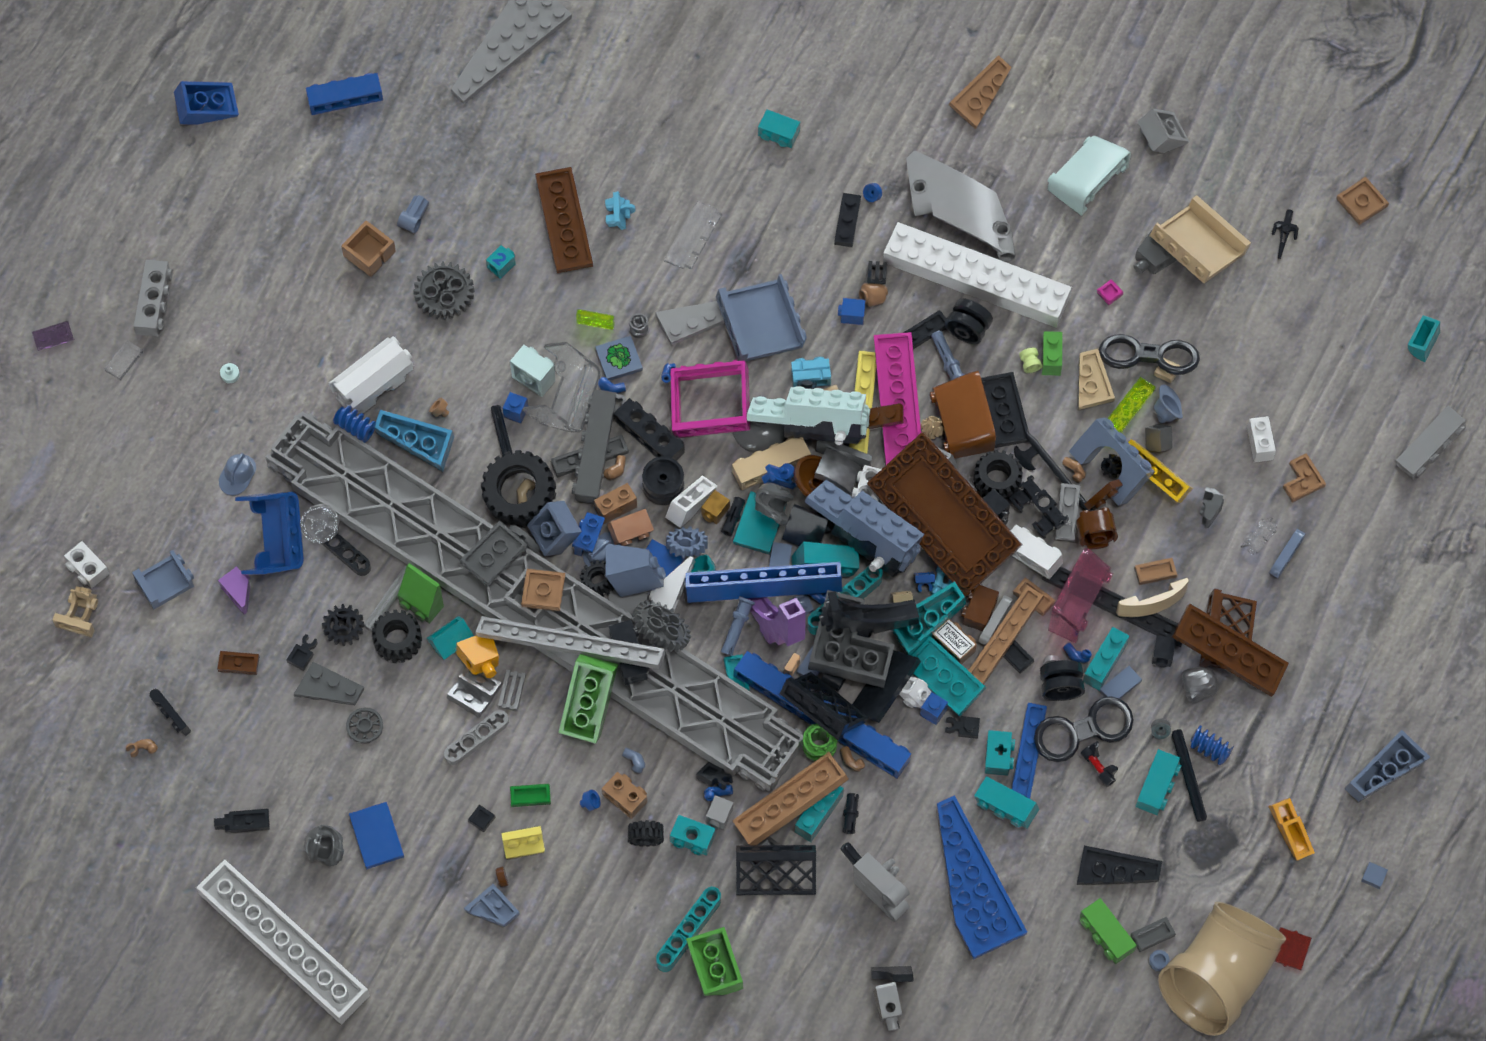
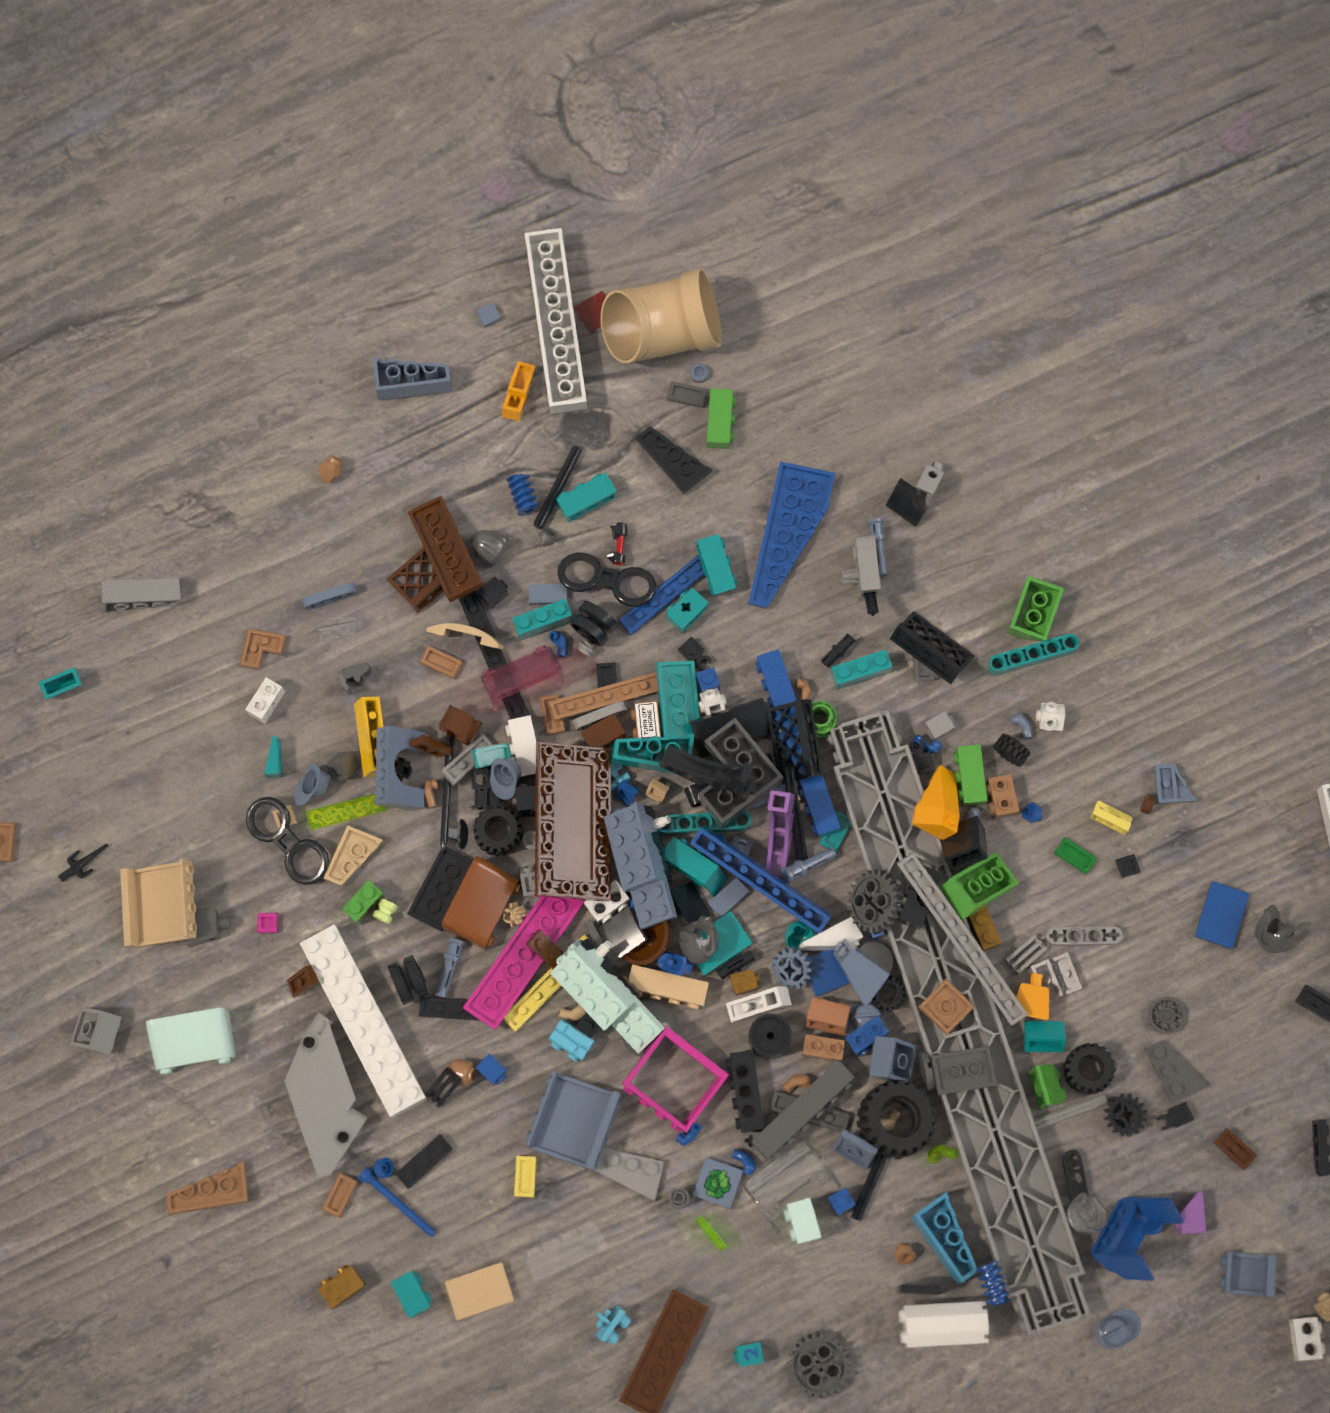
camera: 140 degrees left, 10 degrees up
(408, 386) = (918, 1289): none -> black tile
(468, 496) = (940, 1151): none -> clear neon green arm
(535, 446) = (854, 1149): none -> sand blue tile
(555, 678) = (984, 930): none -> pearl gold brick
(625, 725) = (967, 845): none -> black brick
(634, 886) = (1051, 716): none -> white brick
(652, 869) = (1022, 721): none -> sand blue arm
(663, 792) = (970, 775): none -> bright green brick
(669, 740) = (939, 807): none -> light orange wedge
(686, 826) = (974, 735): teal brick -> none
(732, 167) = (479, 1291): none -> tan tile
(765, 262) = (525, 1176): none -> light yellow tile
(778, 654) = (797, 826): none -> black axle
(790, 799) = (880, 688): medium nougat plate -> none
(832, 99) = (342, 1286): none -> pearl gold brick
(880, 179) = (368, 1177): none -> blue piece
(888, 156) = (339, 1195): none -> medium nougat tile
(893, 929) = (876, 529): none -> sand blue pin
(1026, 513) = (504, 777): none -> sand blue piece
(1045, 266) = (302, 981): none -> reddish brown plate
(1051, 522) = (485, 756): none -> teal tile
(1211, 401) = (274, 761): none -> teal slope
(1314, 907) = (556, 321): none -> white brick
(1380, 650) = (330, 469): none -> medium nougat rock

